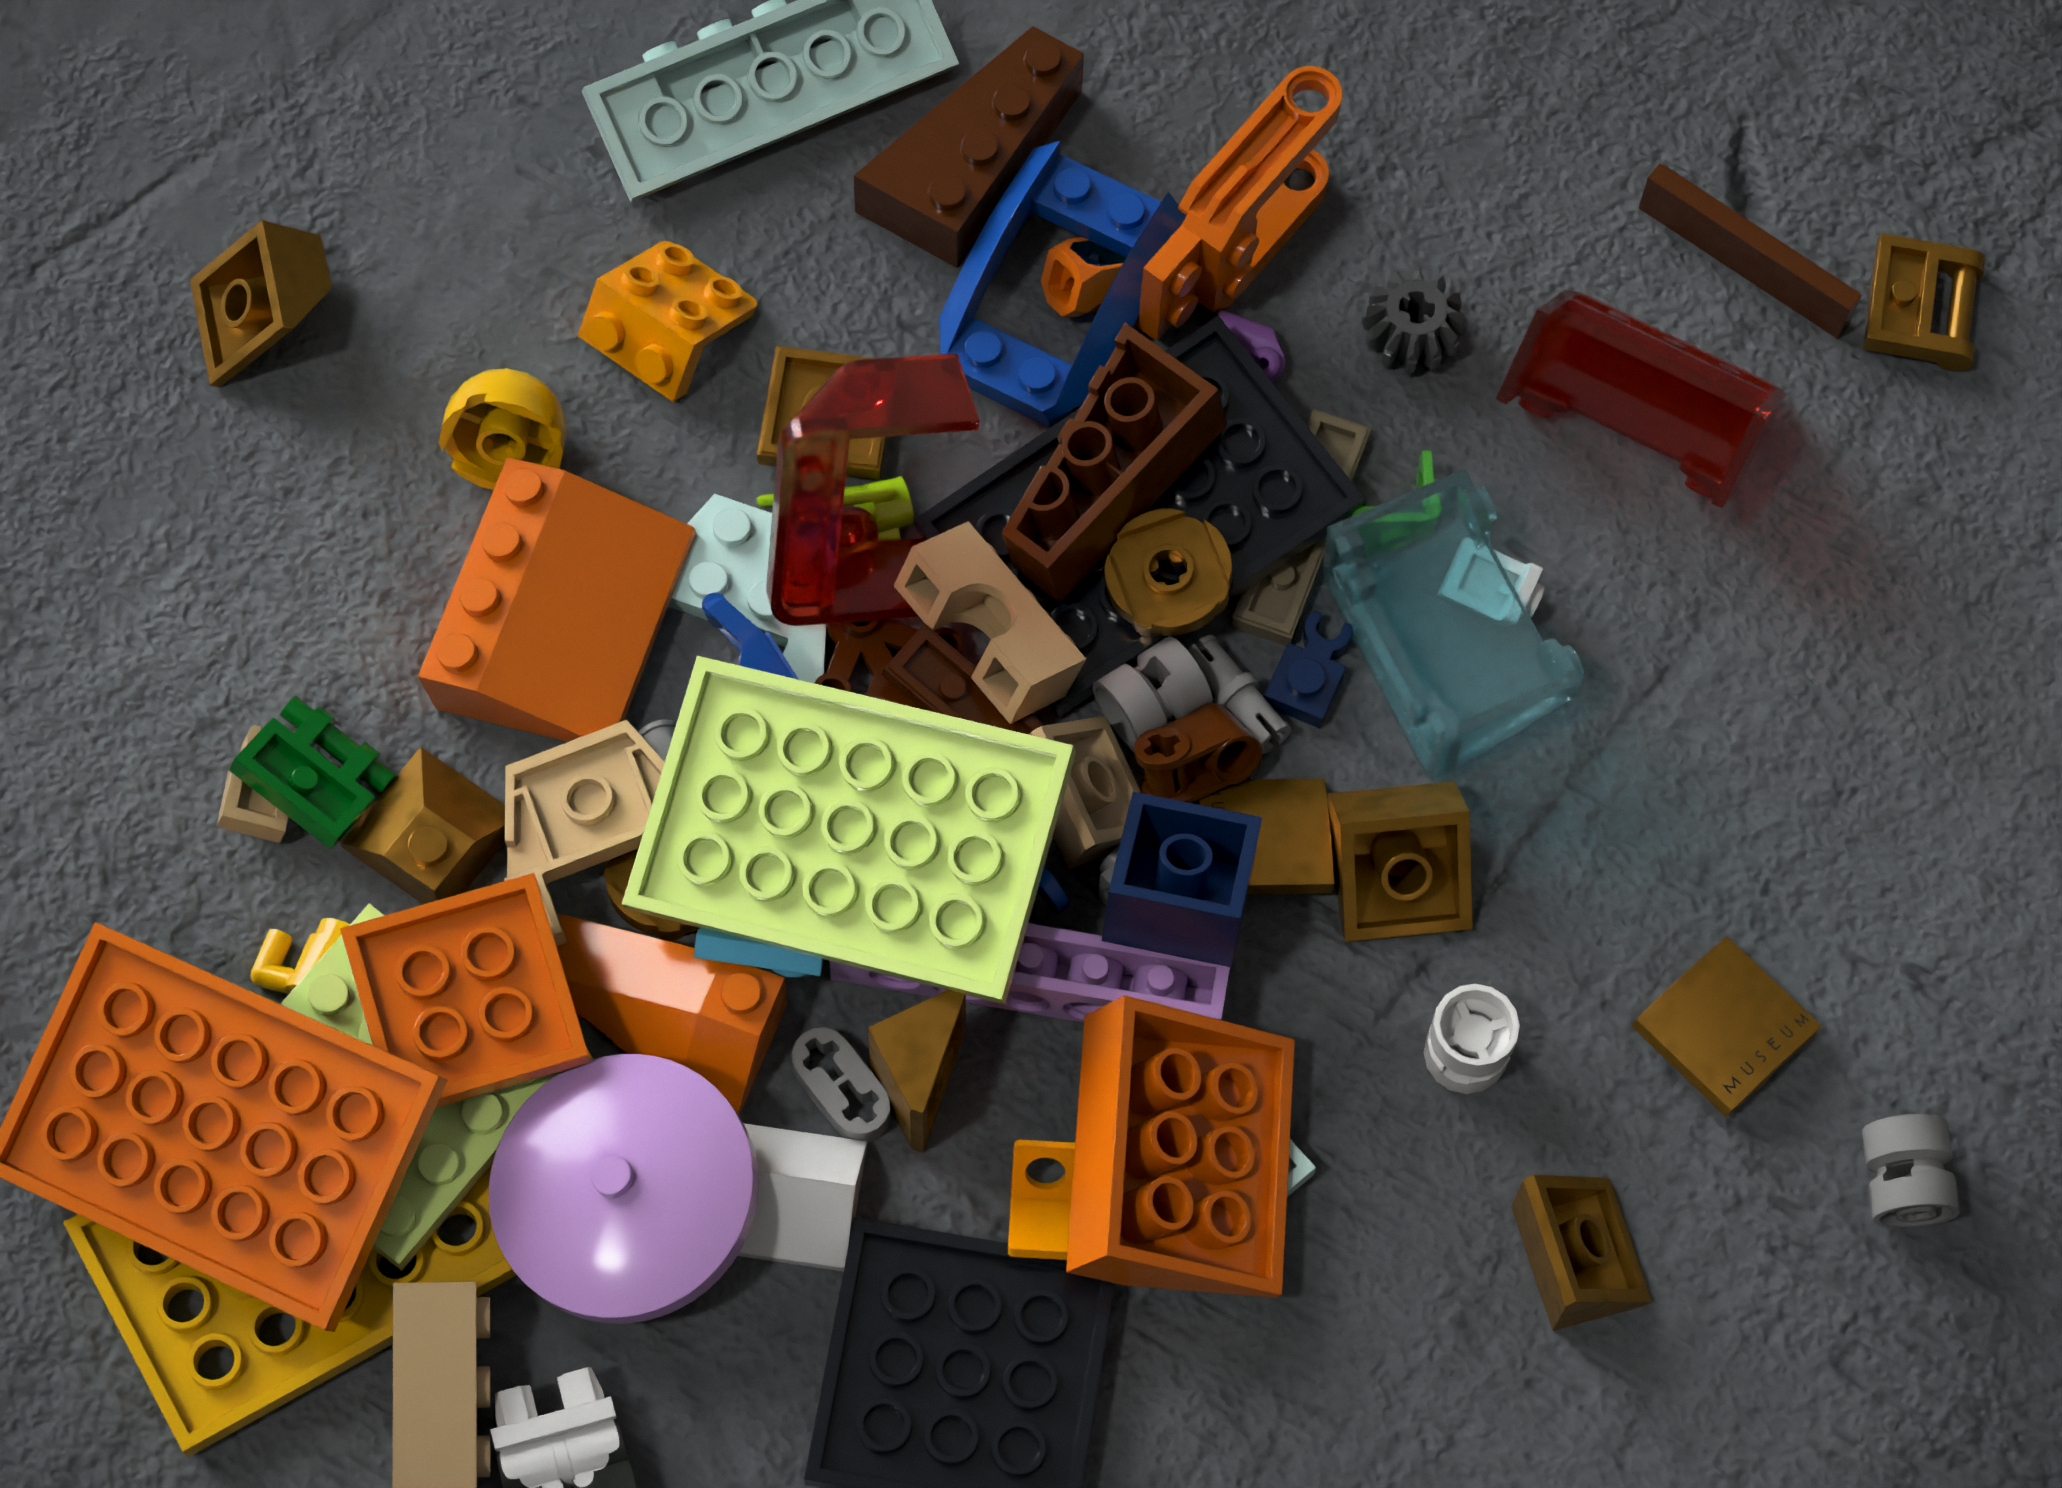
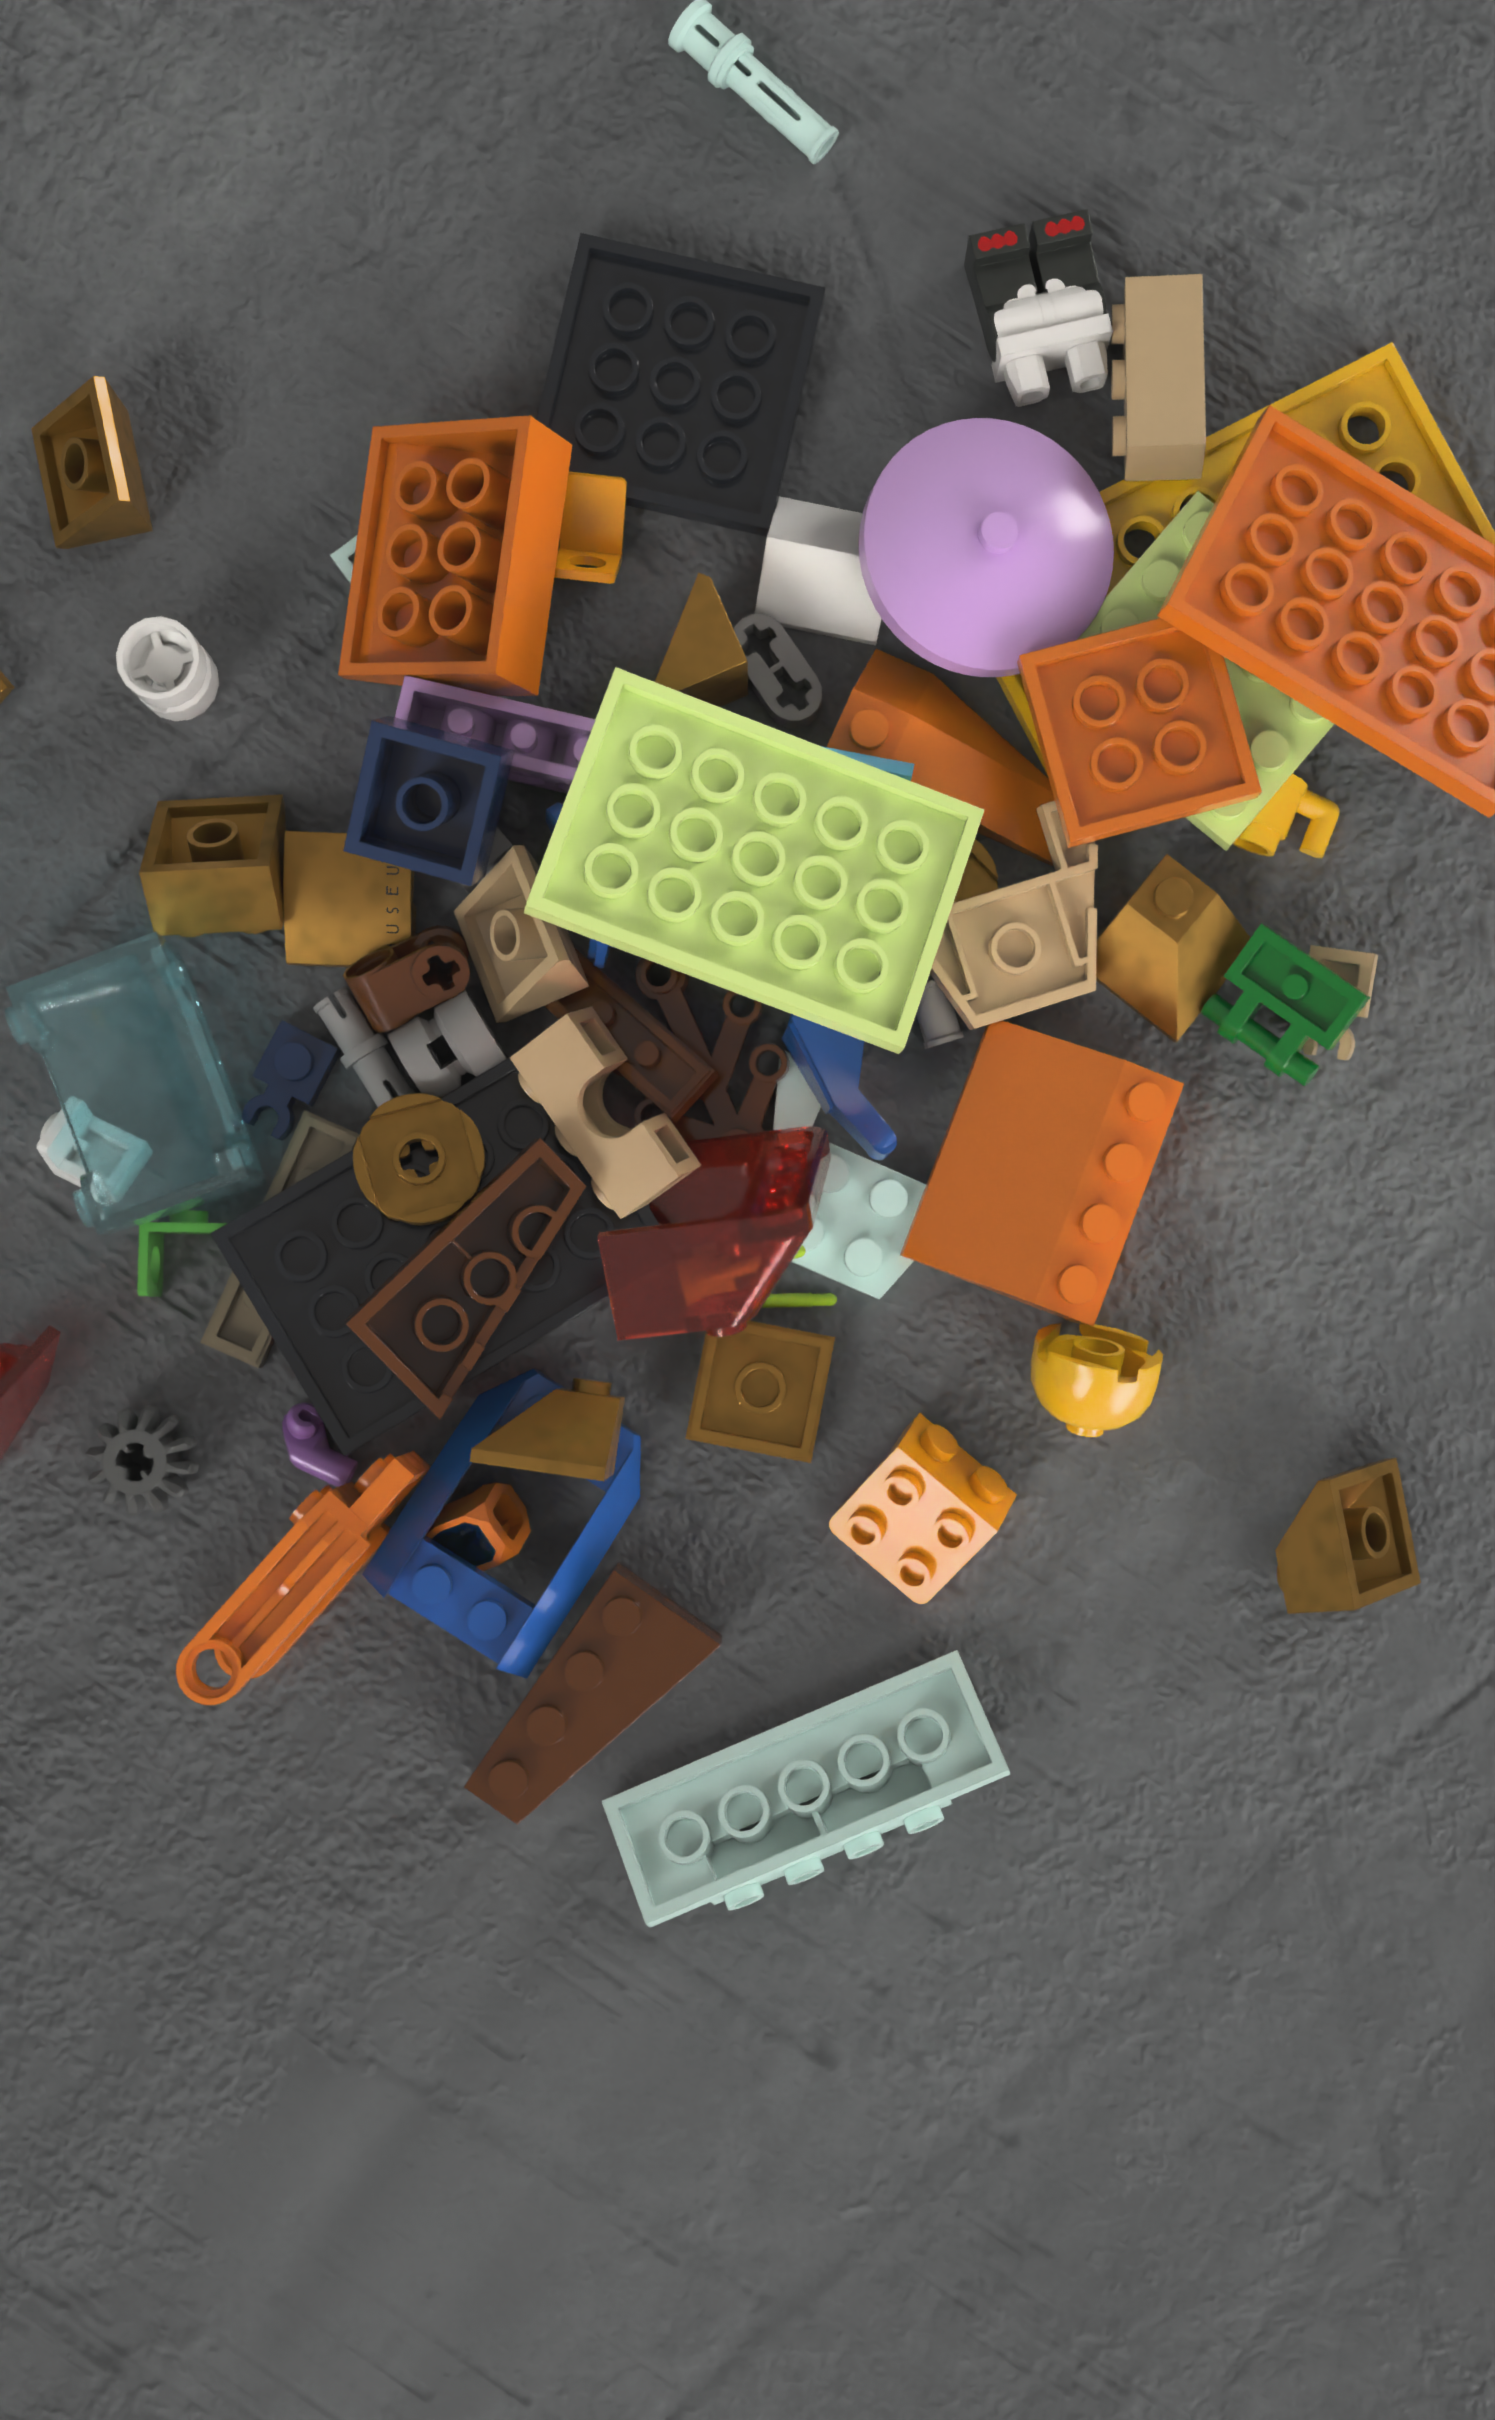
camera: 170 degrees left, 20 degrees up
(1019, 326) = (561, 1434): none -> pearl gold slope

